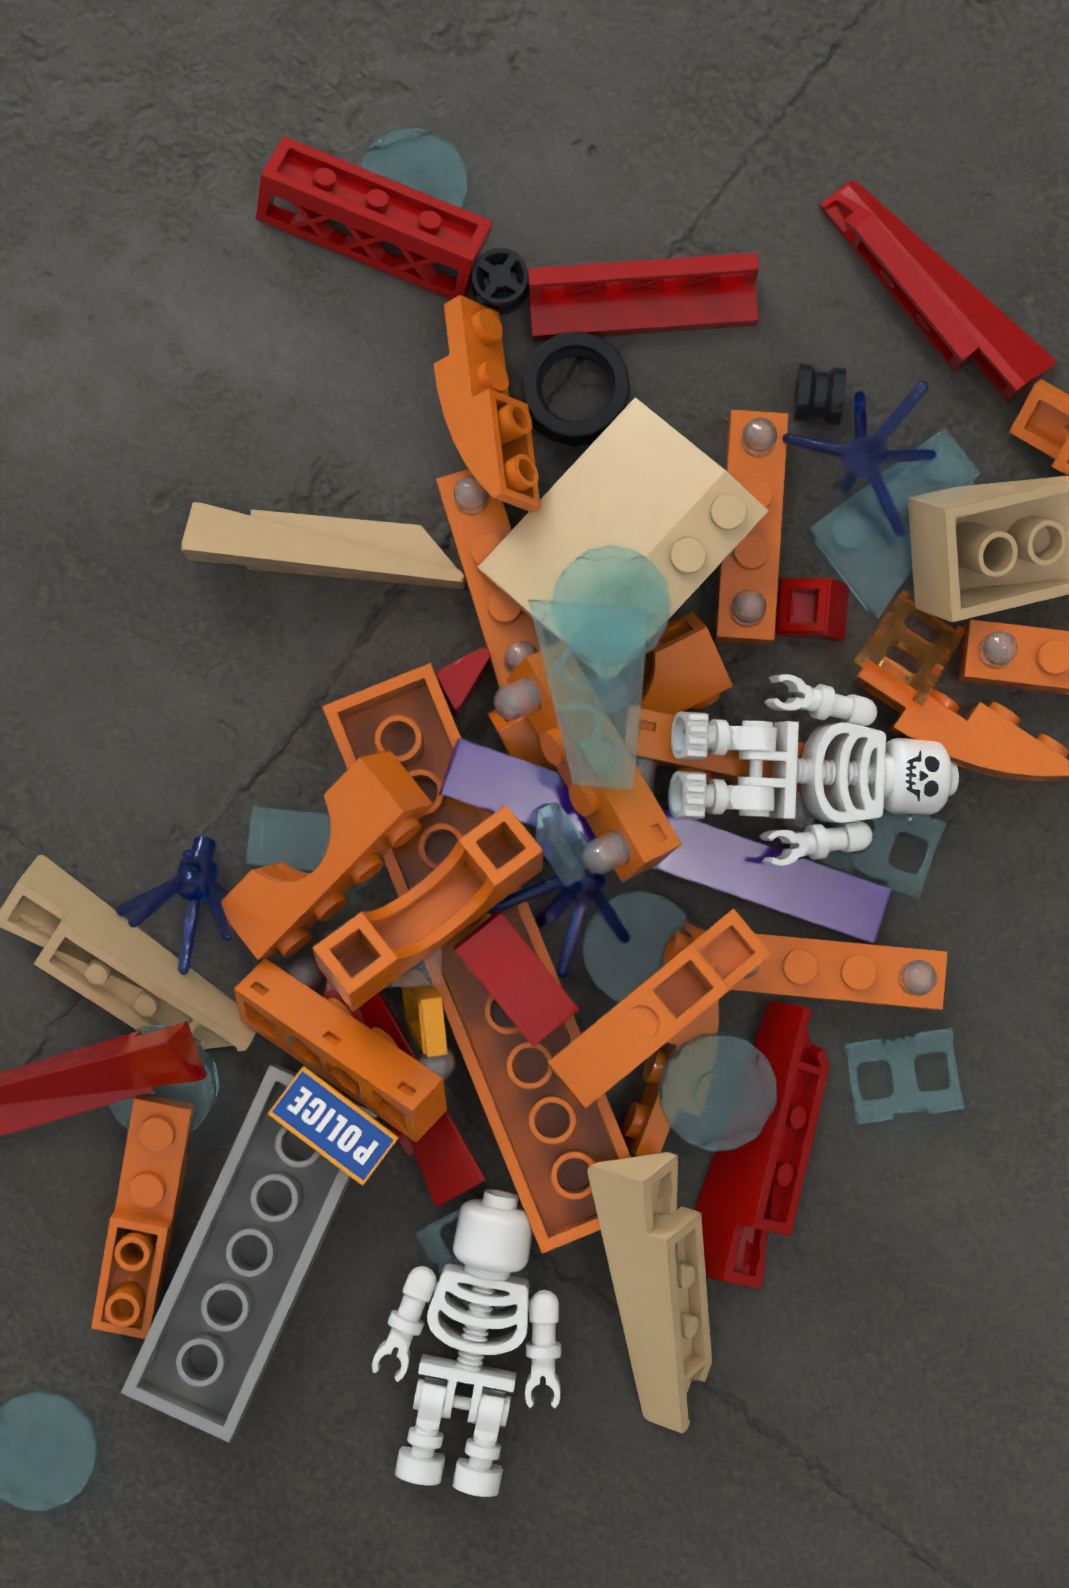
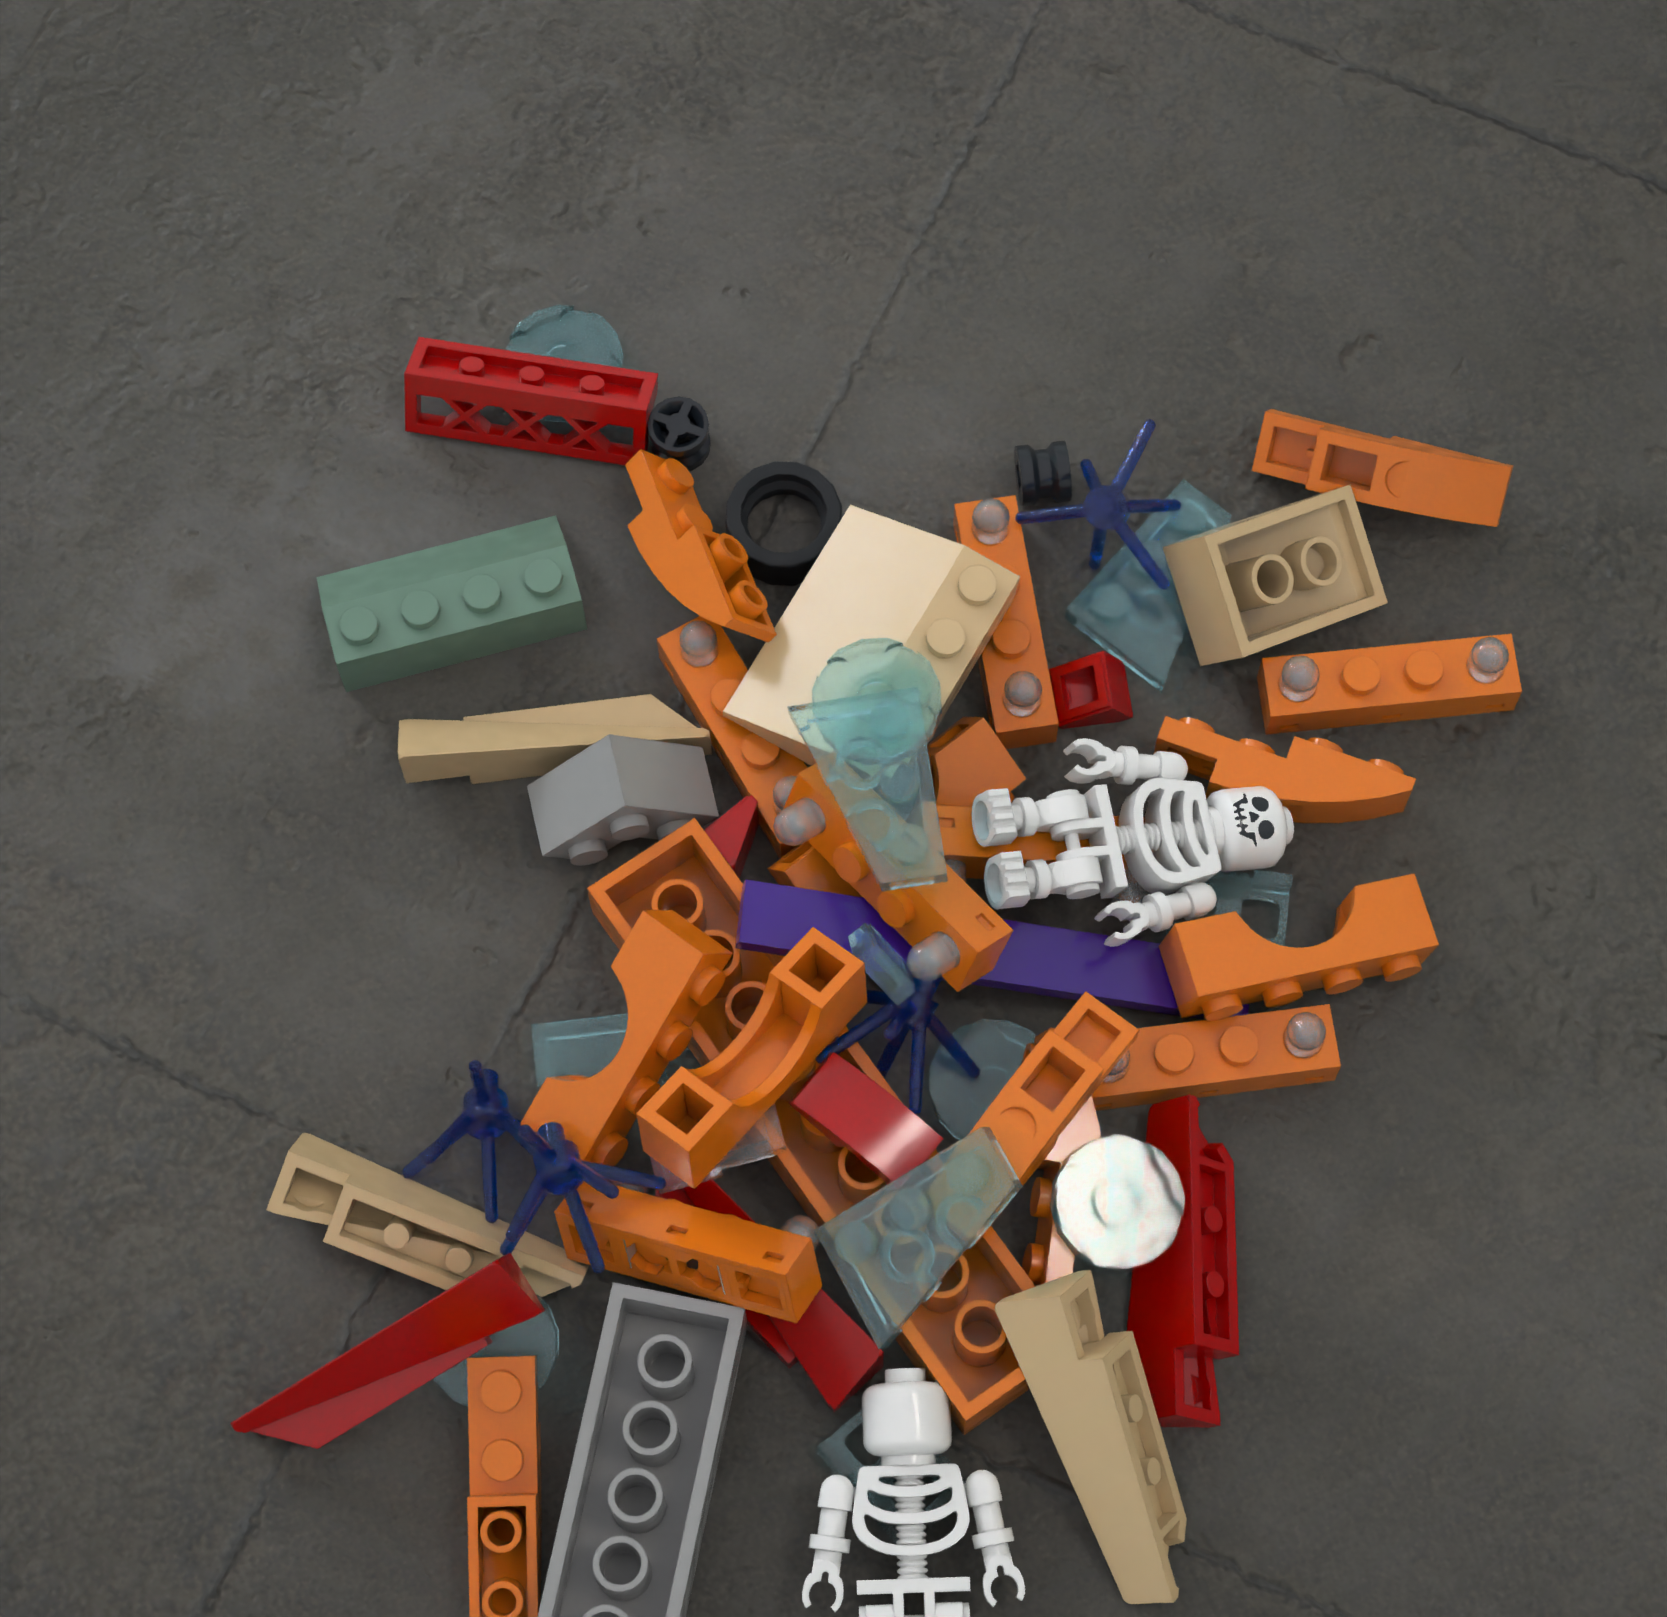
camera: 15 degrees left, 15 degrees down
(246, 960) = (561, 1173): none -> clear blue plant
(261, 395) = (451, 603): none -> sand green slope
(333, 1125) = (699, 1328): tile -> none
(373, 623) = (618, 794): none -> light grey brick
(425, 1019) = (772, 1191): light orange tile -> none
(535, 1088) = (915, 1229): none -> clear light blue wing
(644, 296) = (835, 413): red fence -> none
(866, 898) = (1224, 964): none -> orange arch
(906, 1094) = (1308, 1135): clear light blue piece -> none
(931, 656) = (1231, 704): clear orange piece -> none
(935, 296) = (1138, 359): red wedge -> none

